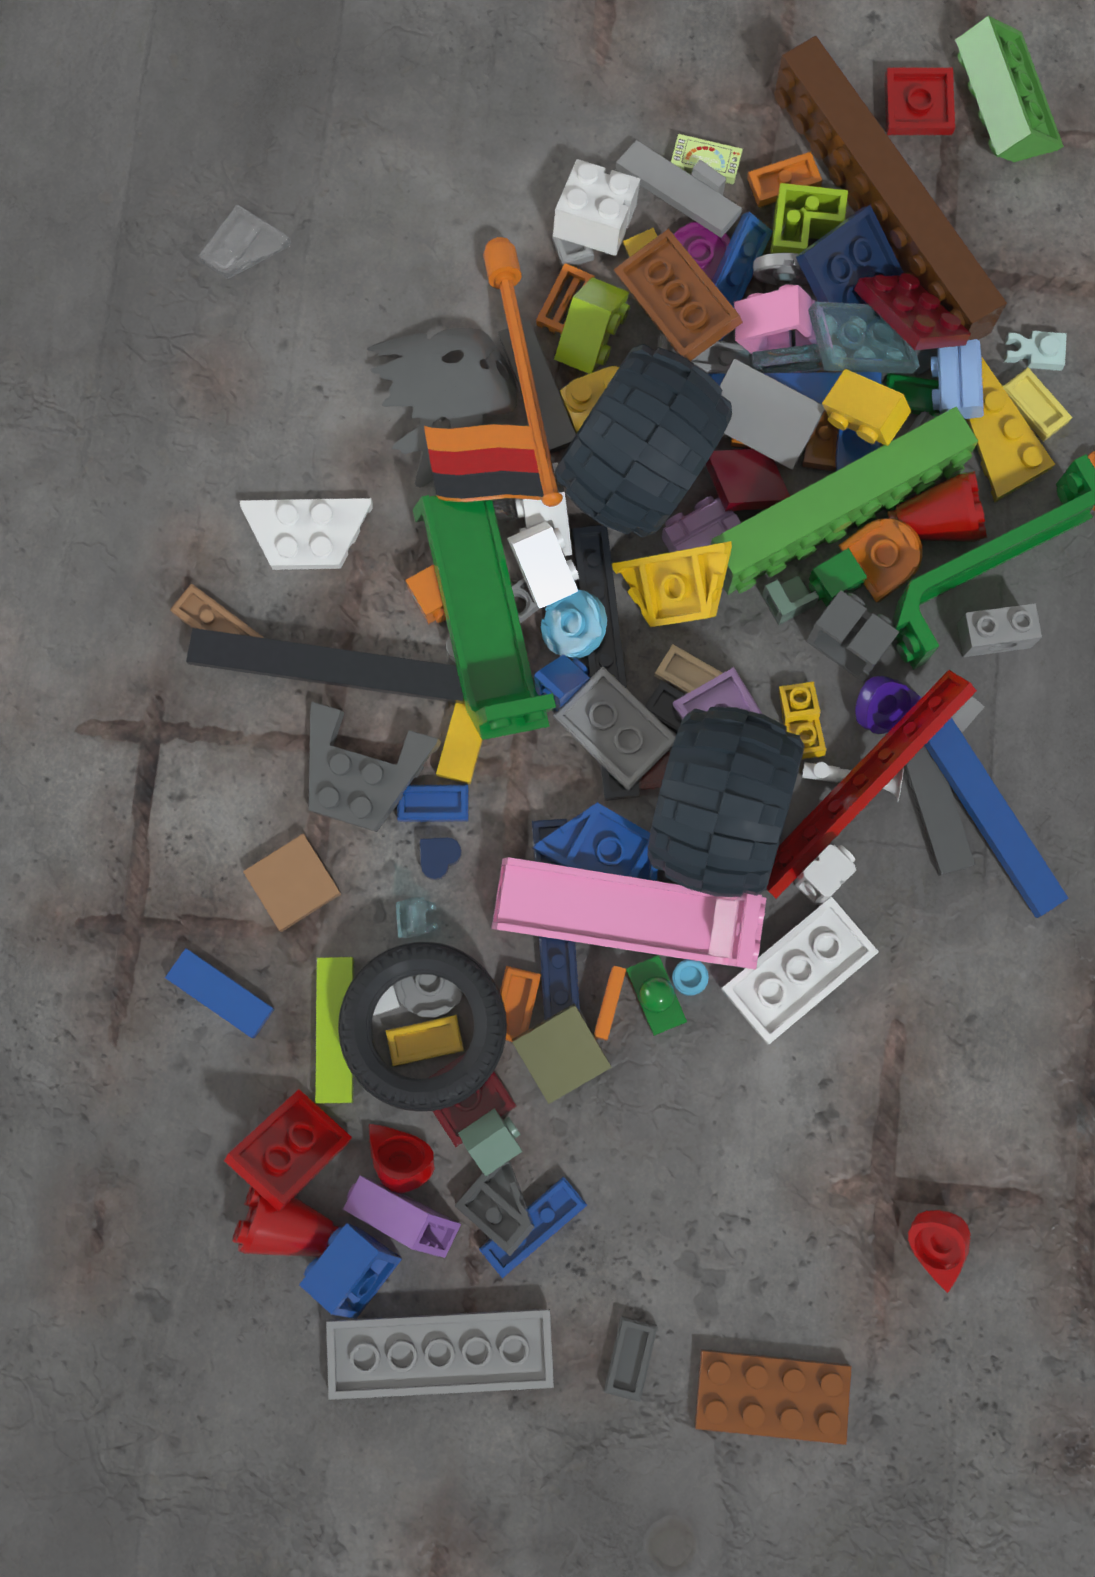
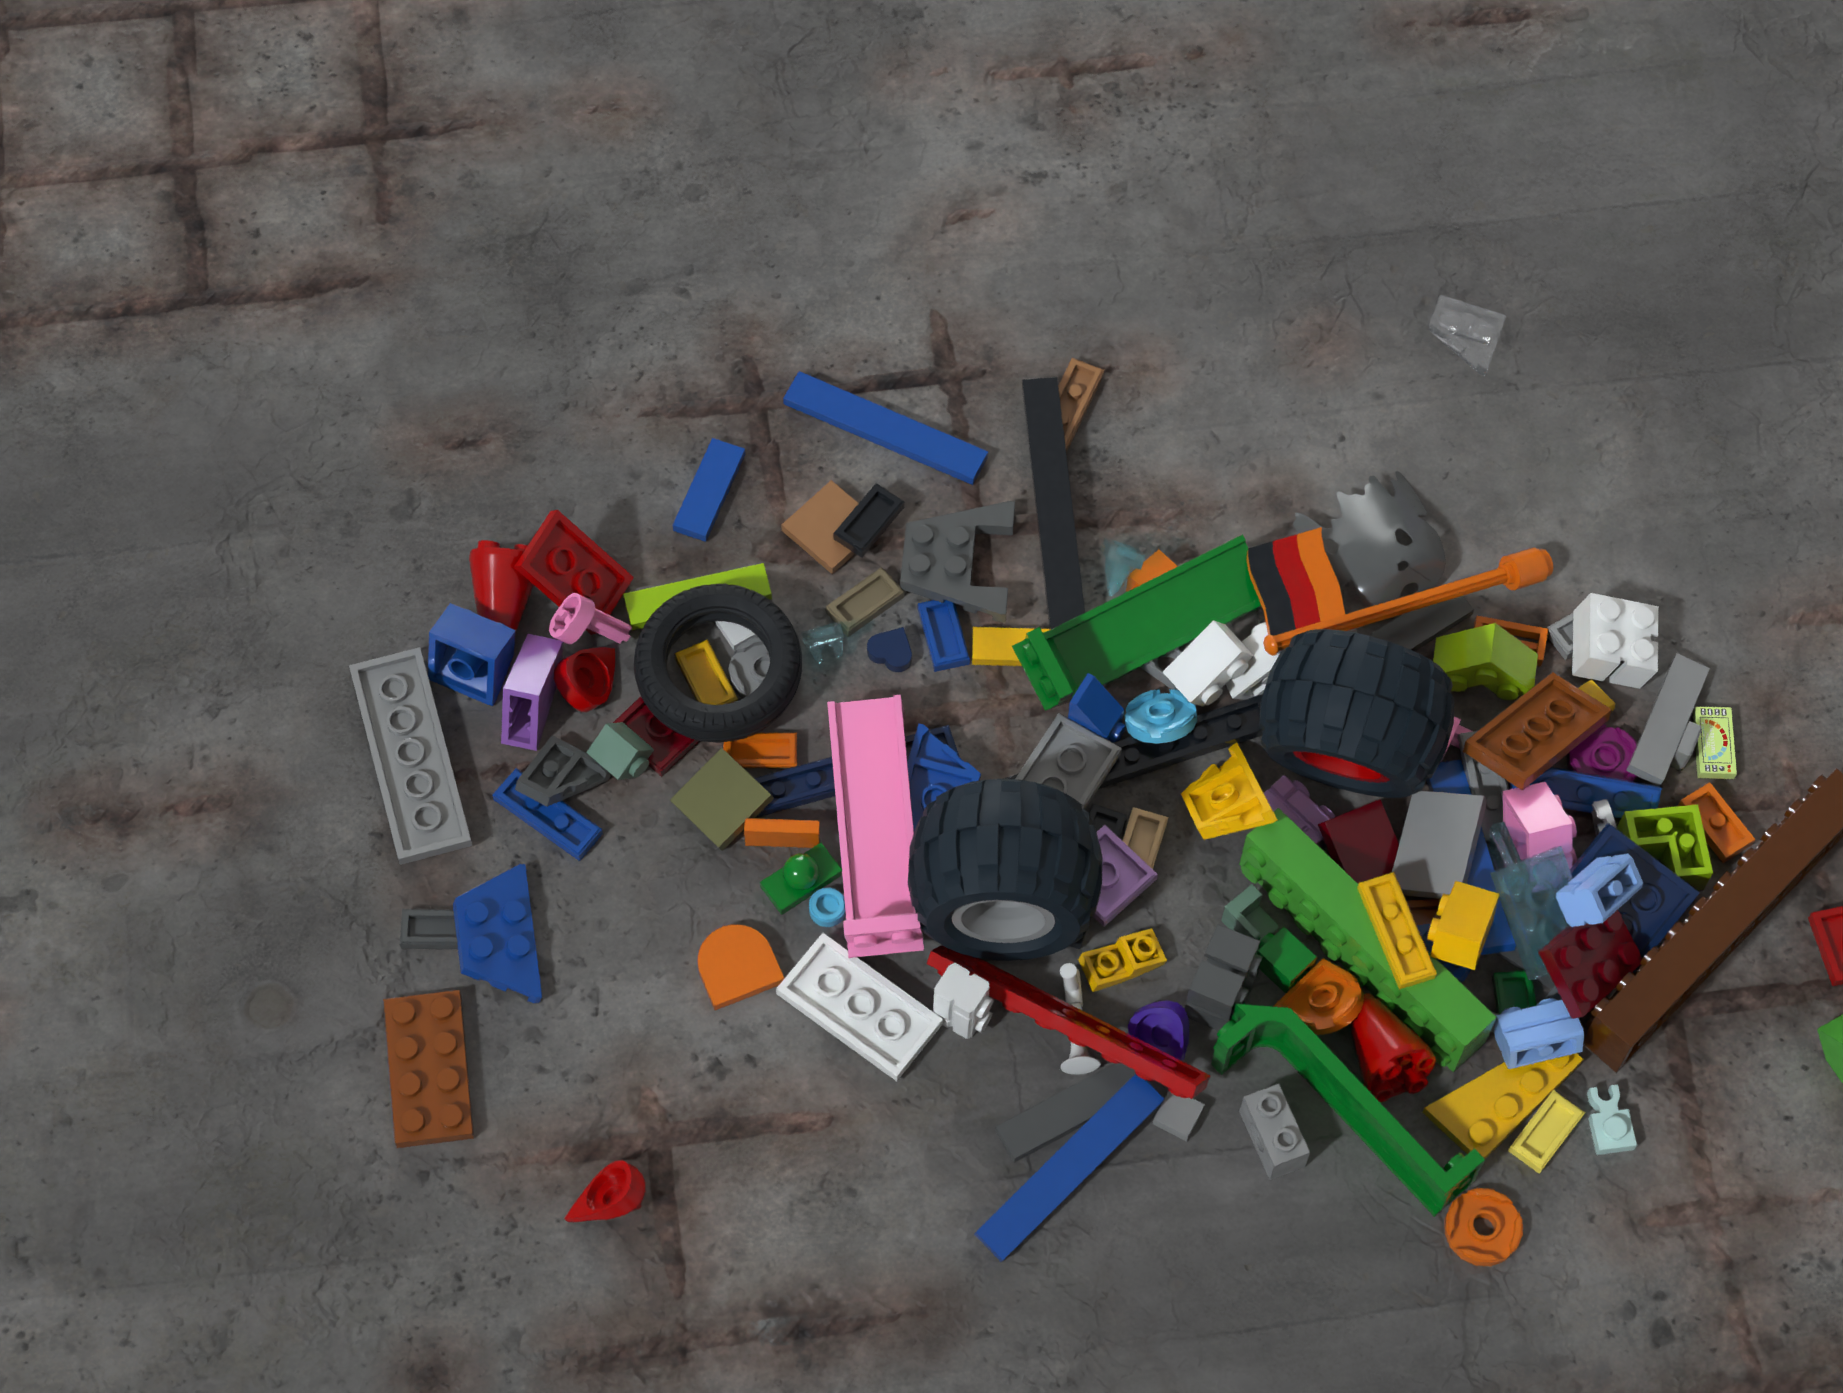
camera: 70 degrees right, 15 degrees down
(196, 806) = (885, 428): none -> blue tile
(298, 844) = (869, 520): none -> black tile
(306, 530) = (1188, 458): white wing -> none
(340, 1155) = (580, 613): none -> bright pink piece
(380, 869) = (865, 601): none -> dark tan tile
(407, 617) = (1119, 563): none -> clear light blue tile
(653, 1301) = (498, 934): none -> blue wing
(731, 1076) = (737, 965): none -> orange tile
(859, 467) = (1396, 930): none -> yellow tile
(866, 281) = (1599, 890): none -> light blue brick

